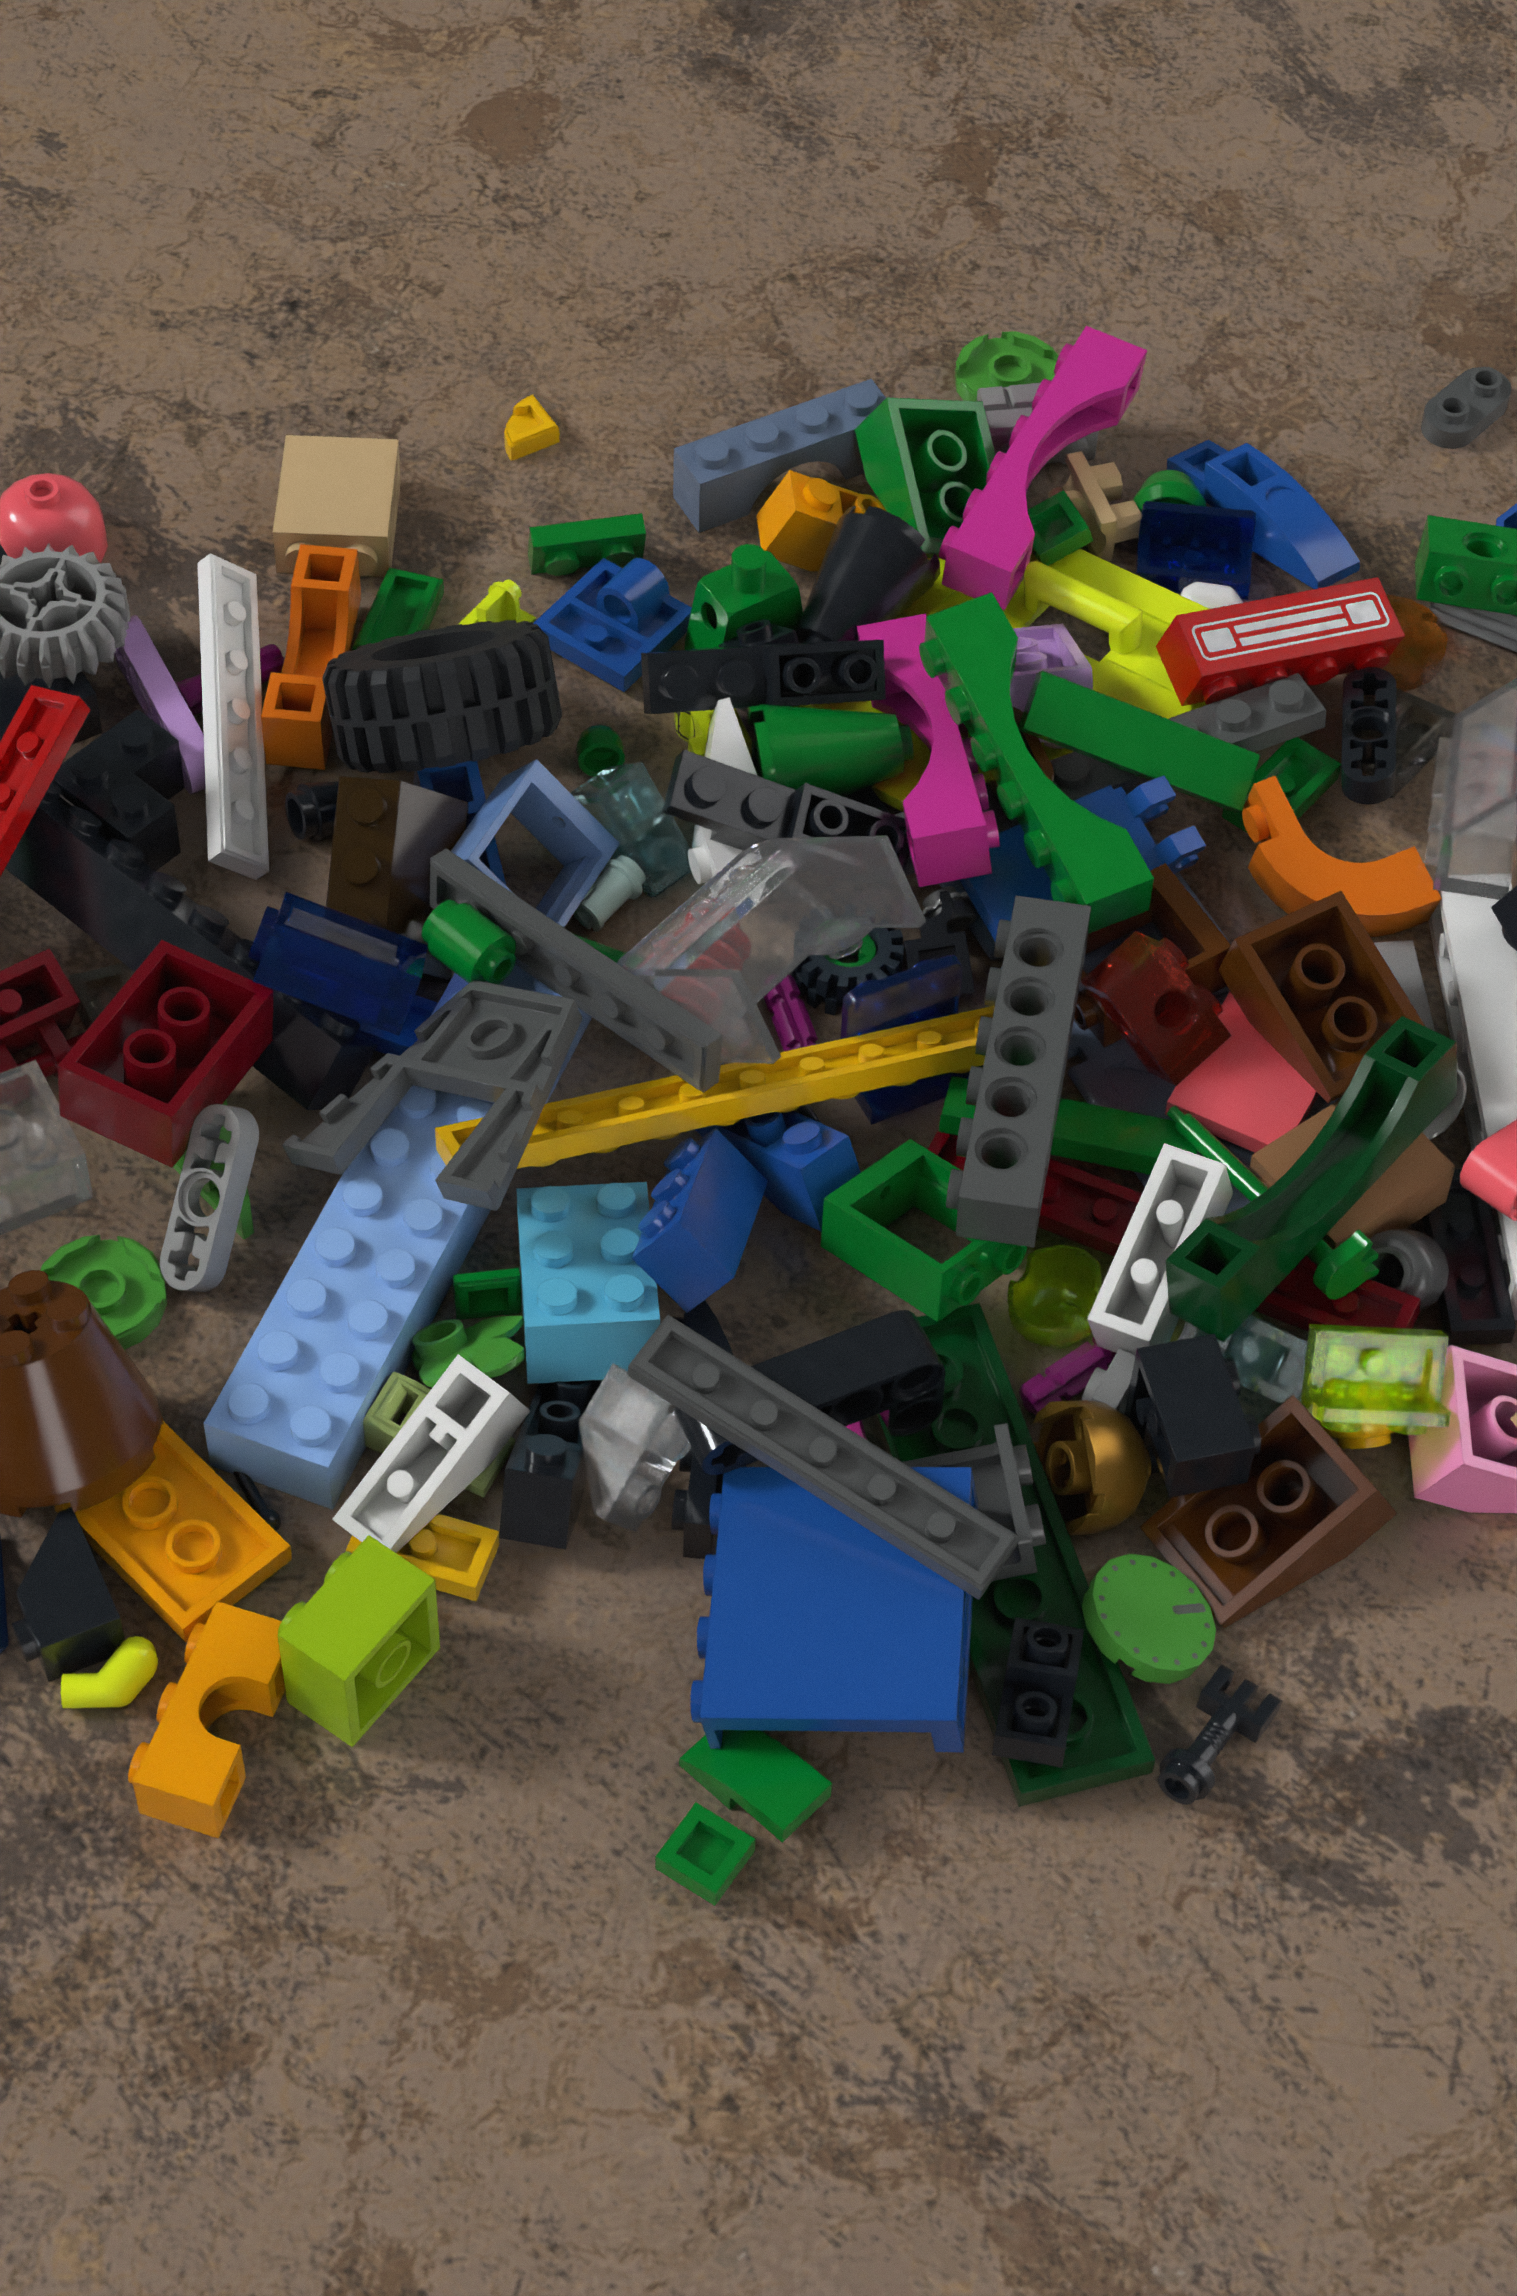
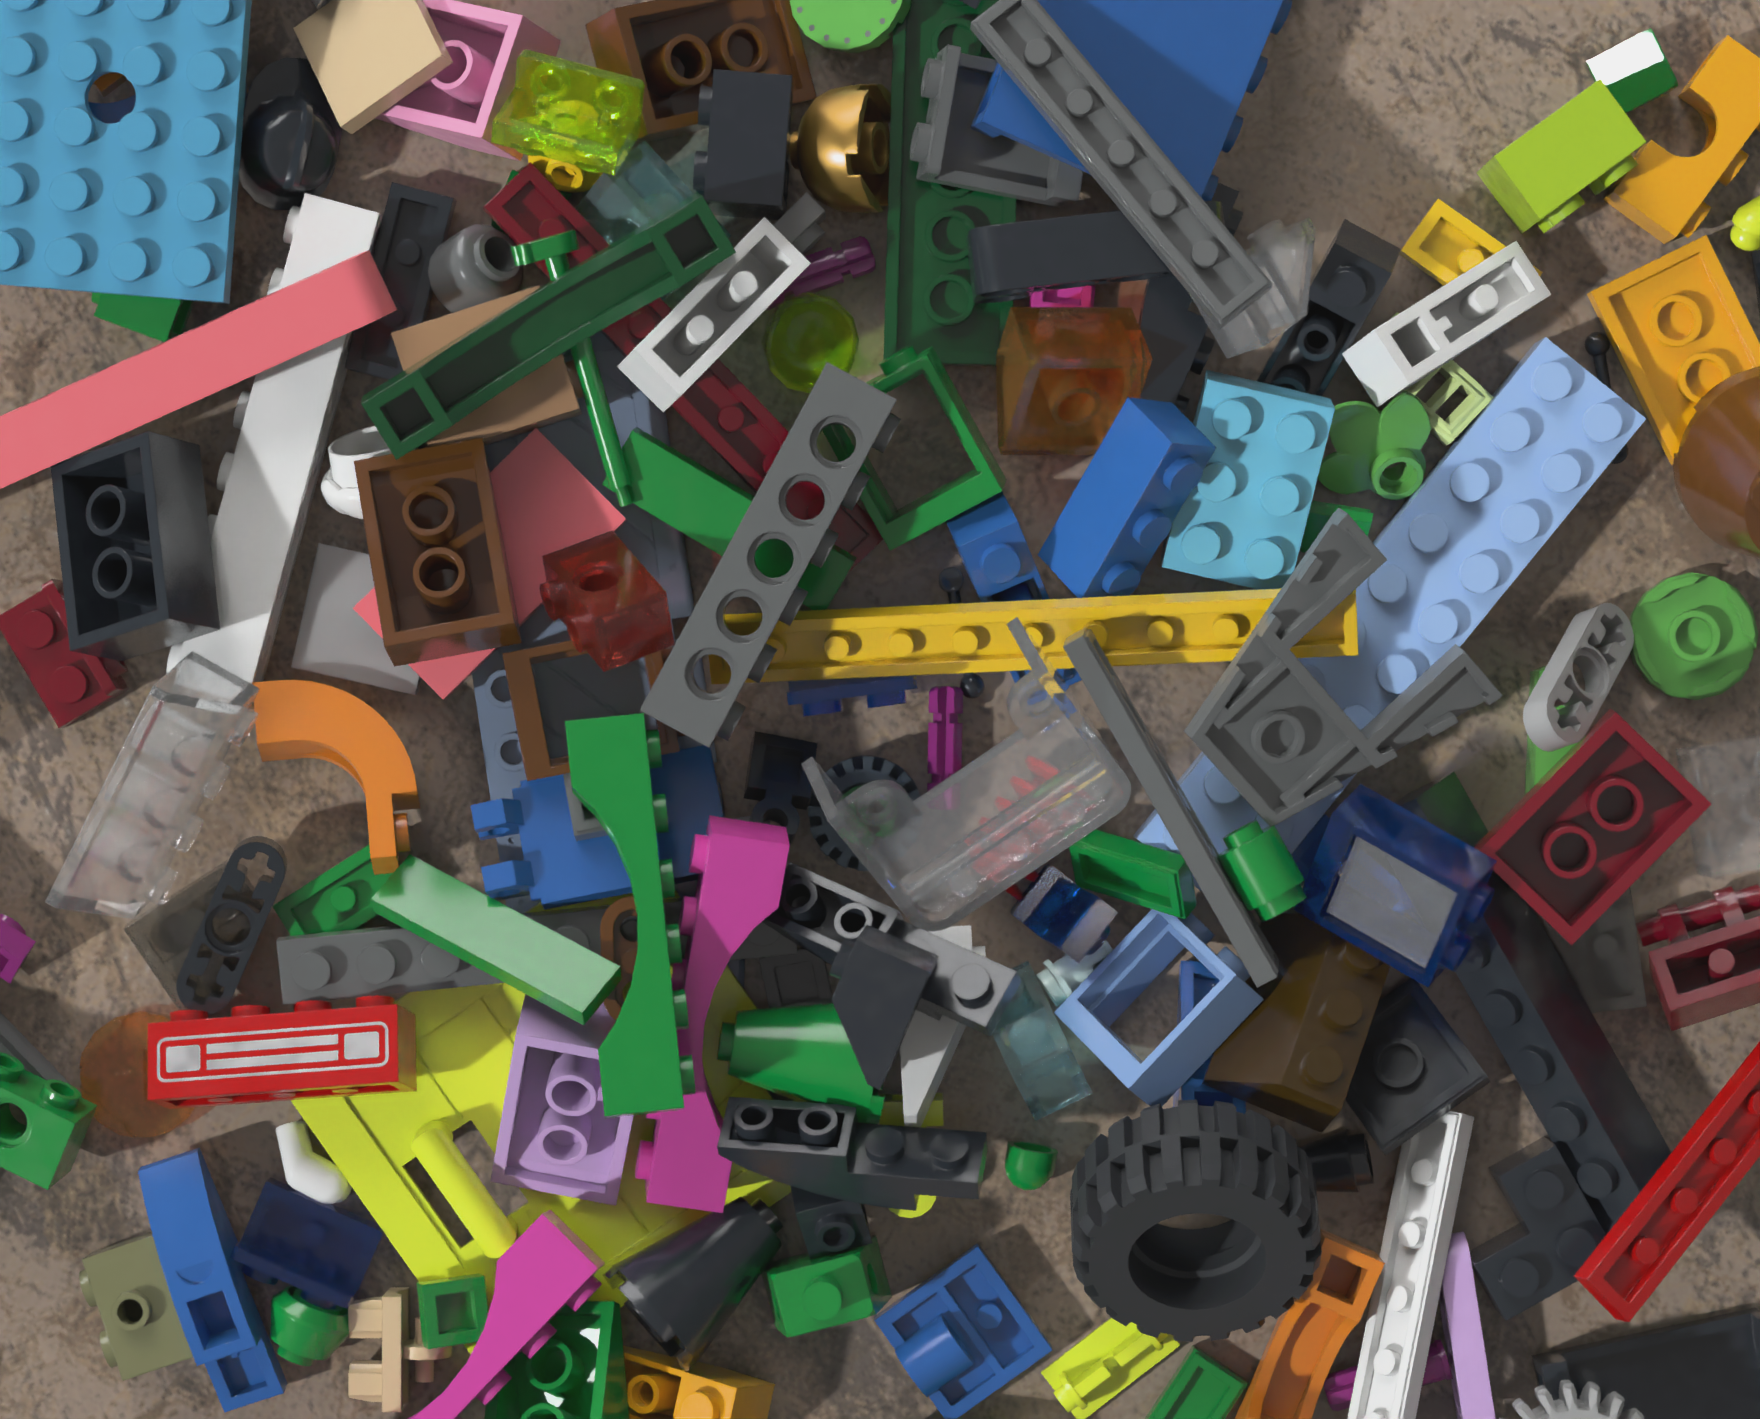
camera: 160 degrees left, 35 degrees up
(274, 860) = (1410, 1068): none -> black plate
(301, 1774) = (1634, 71): none -> slope
(624, 908) = (1064, 914): none -> clear blue bracket
(789, 748) = (879, 996): none -> black slope
(790, 1310) = (1066, 377): none -> clear orange slope
(1327, 478) = (134, 1306): none -> olive brick

